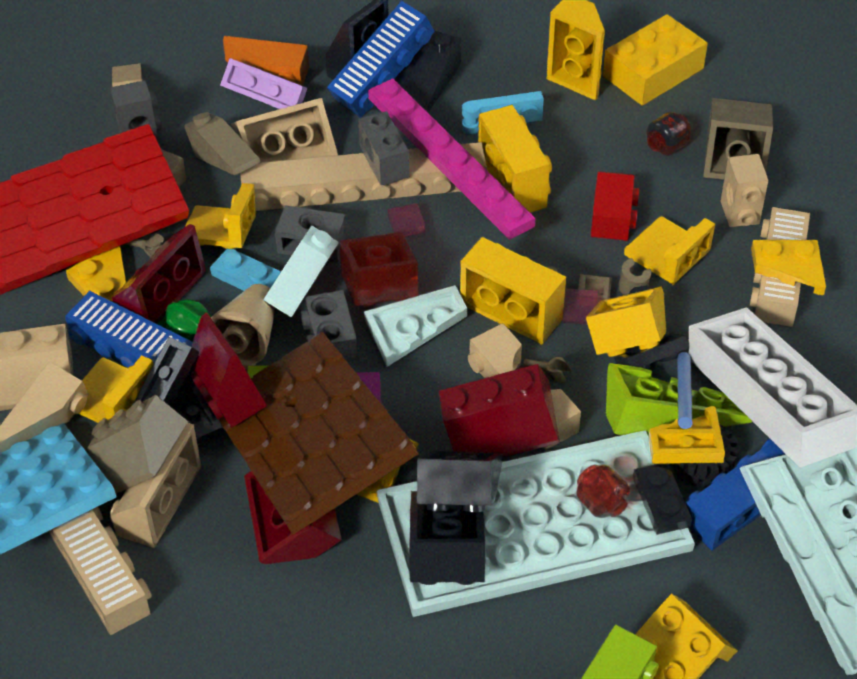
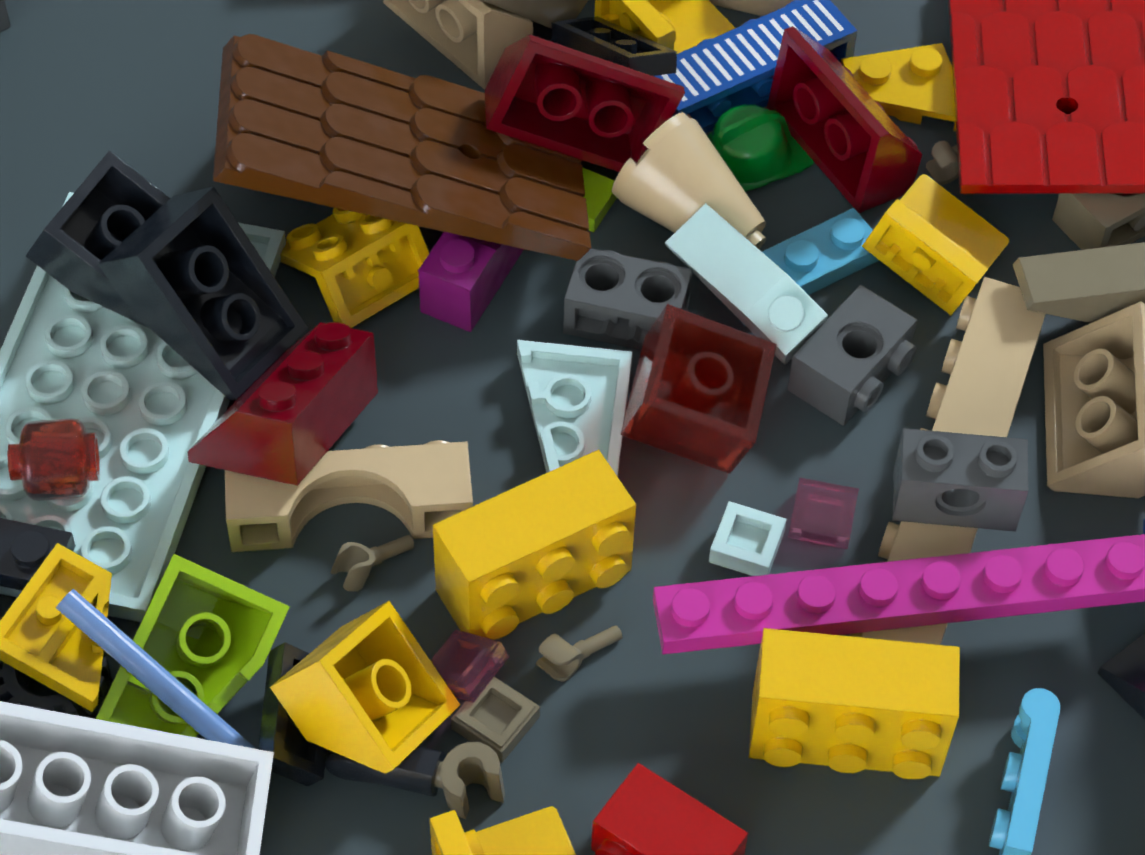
camera: 115 degrees right, 5 degrees up
(443, 236) = (747, 540): none -> light aqua plate

